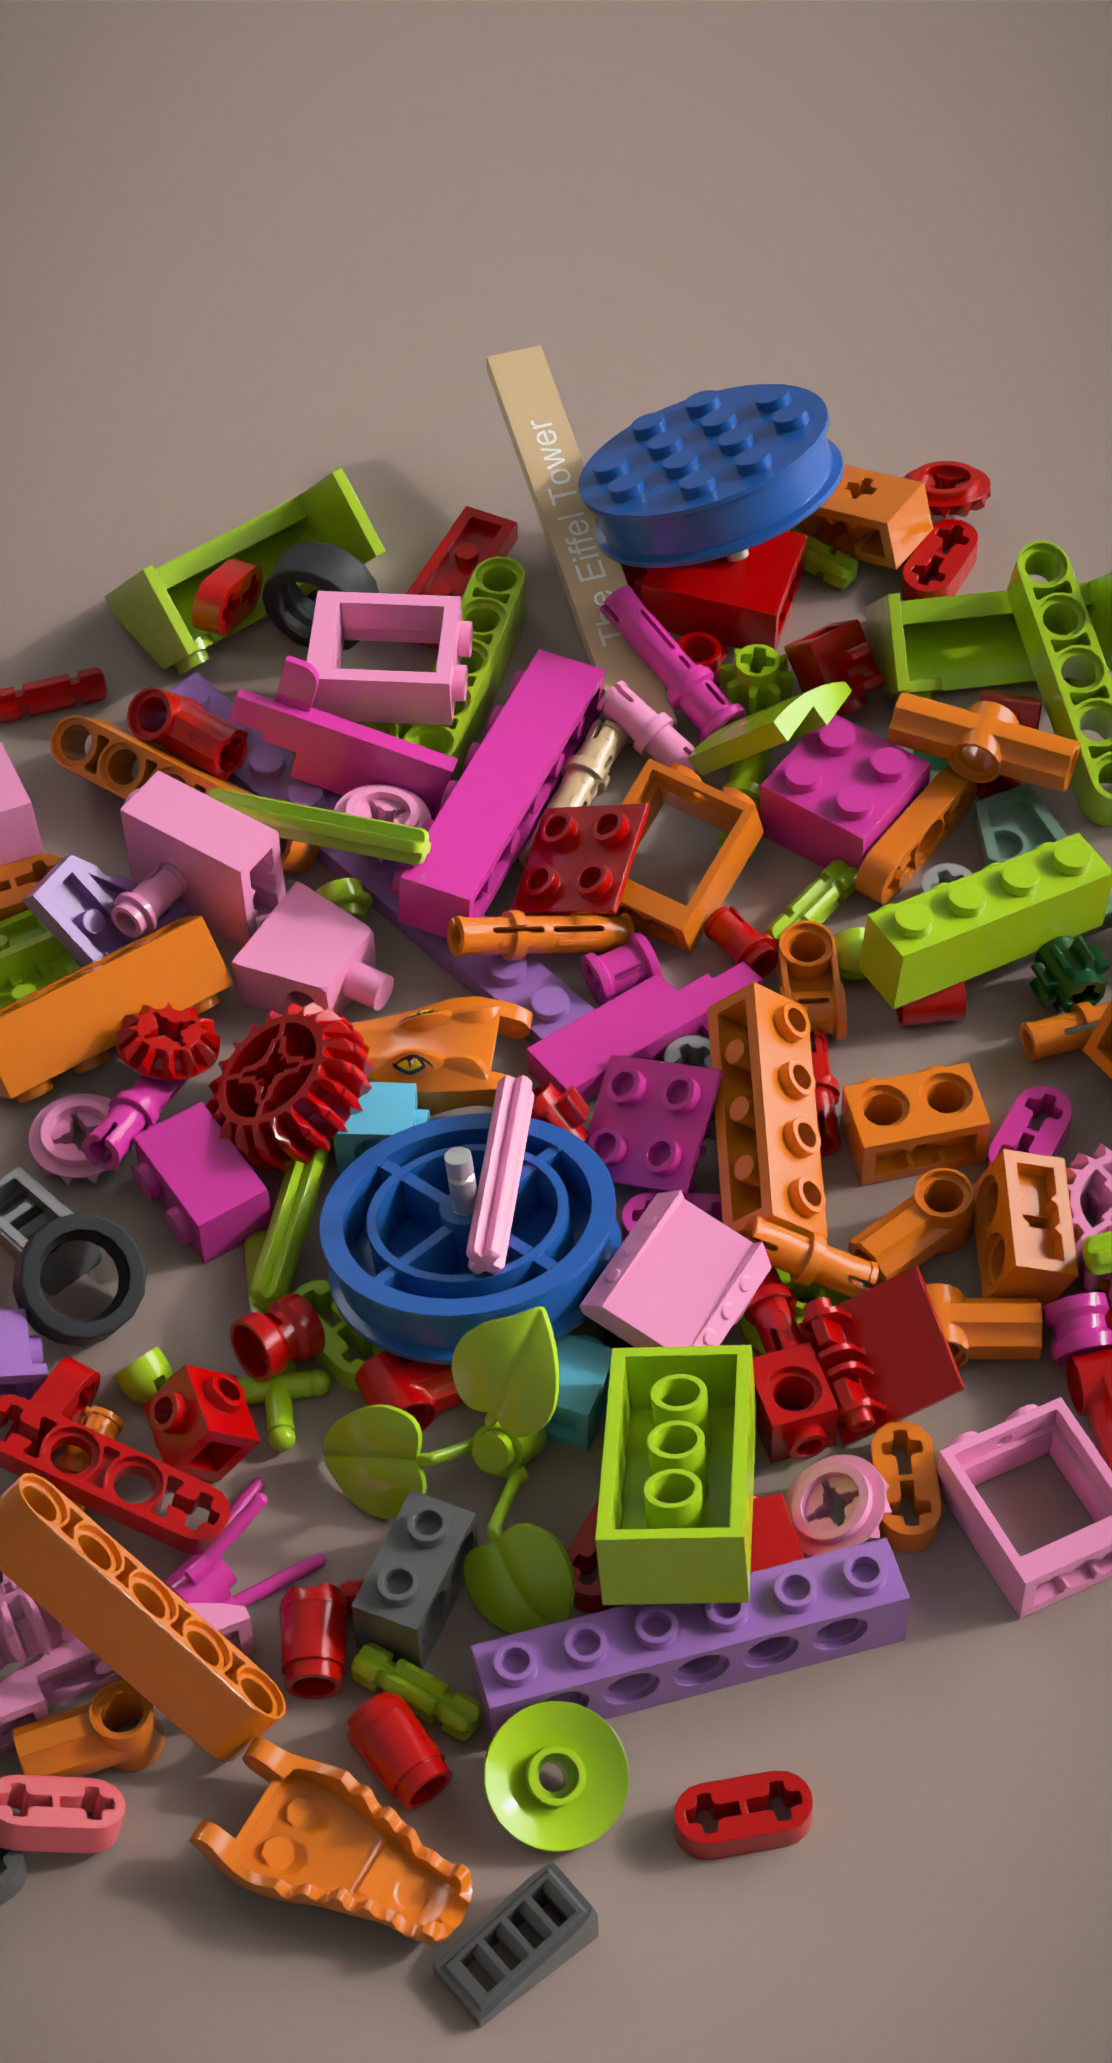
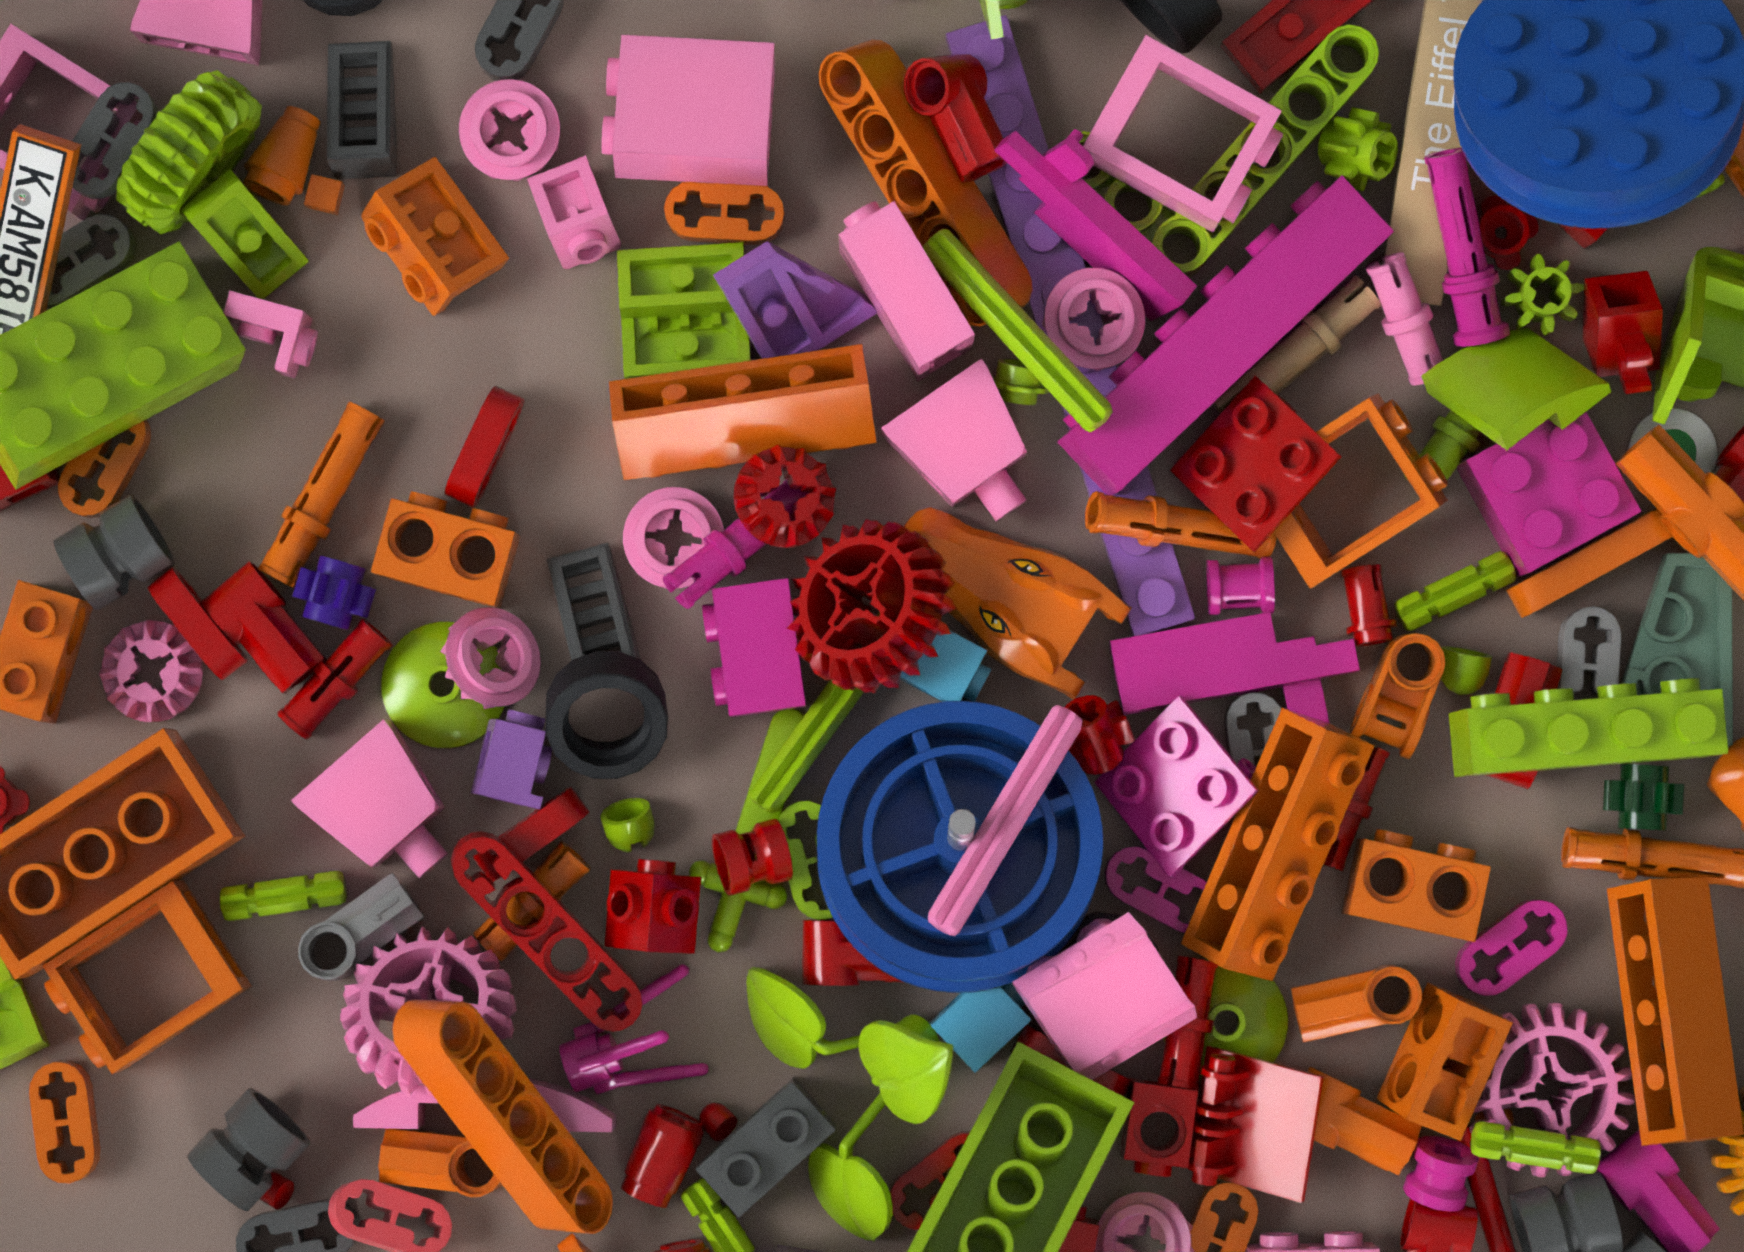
camera: 25 degrees right, 35 degrees up
(138, 911) = (834, 316): bright pink pin -> none
(543, 631) = (1358, 148): none -> lime gear
(811, 1259) = (1239, 1007): orange pin -> none

